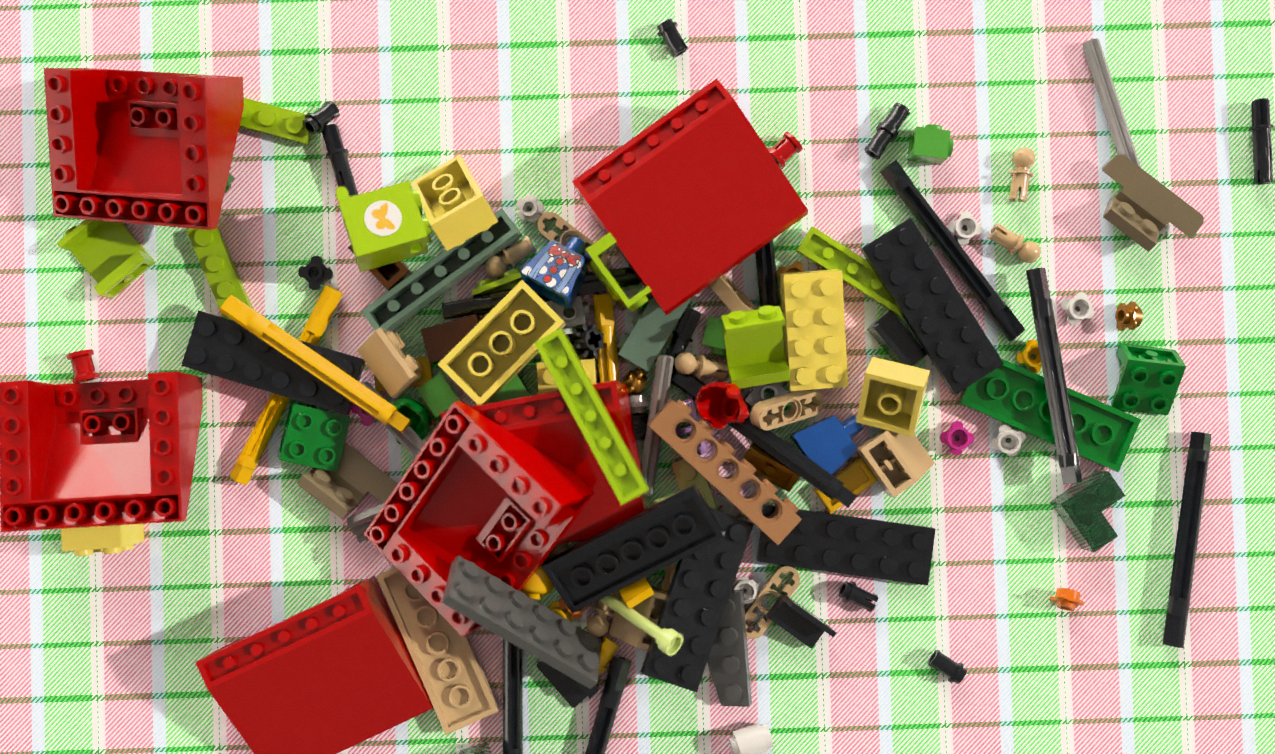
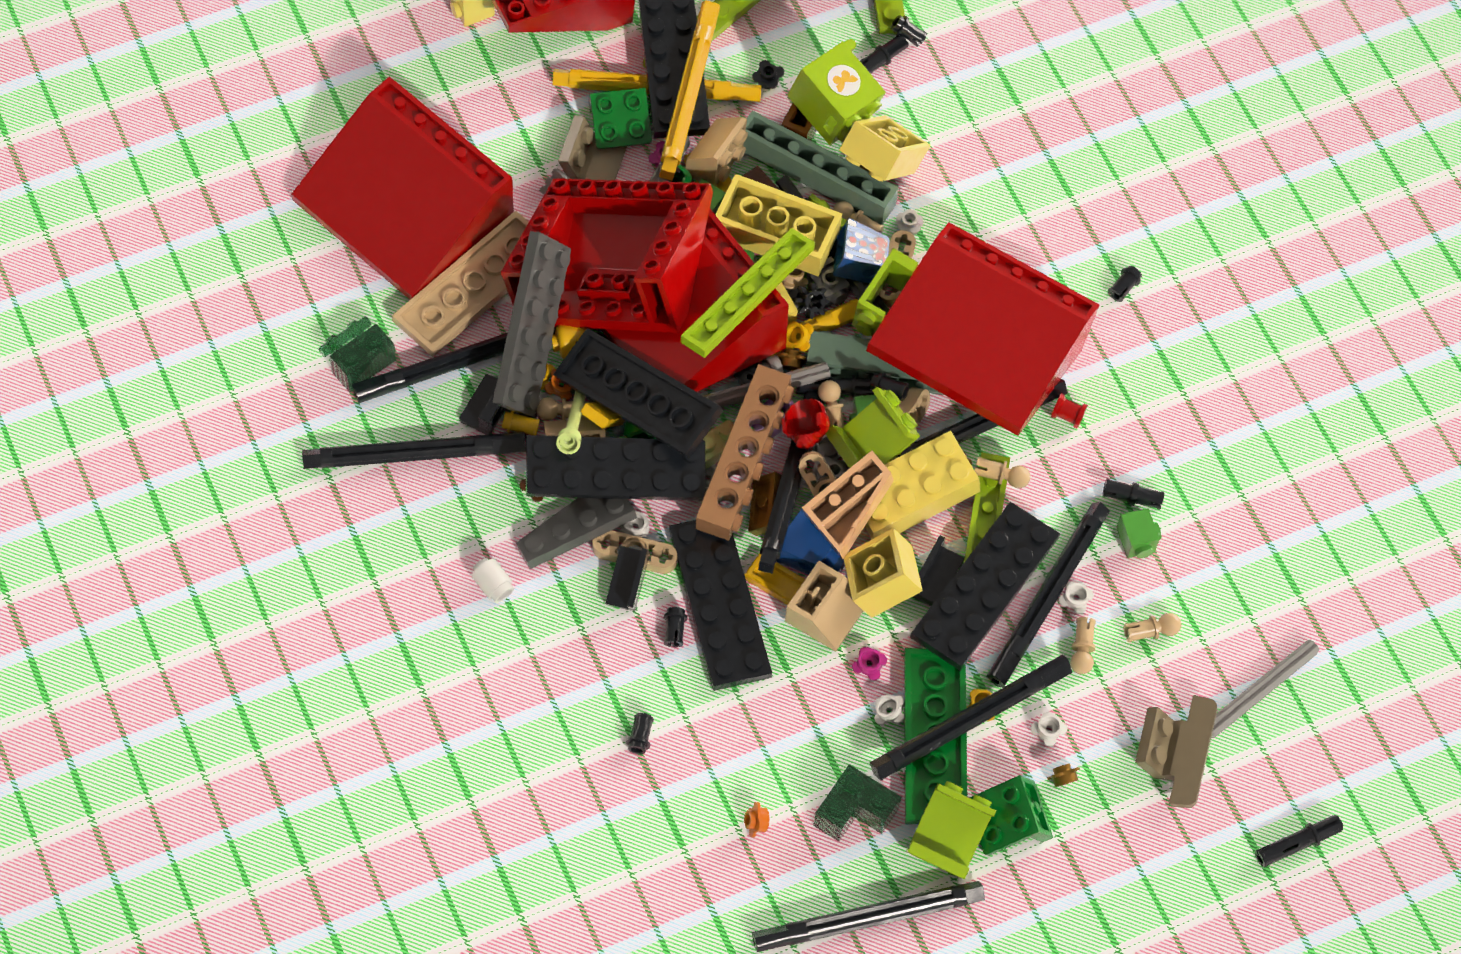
camera: 65 degrees right, 25 degrees down
(620, 375) = (793, 332): none -> yellow plate
(706, 308) = (881, 381): none -> black pin
(823, 402) = (849, 502): none -> light nougat wedge
(839, 230) = (1017, 476): none -> tan pin
(1149, 442) = (951, 829): none -> lime panel

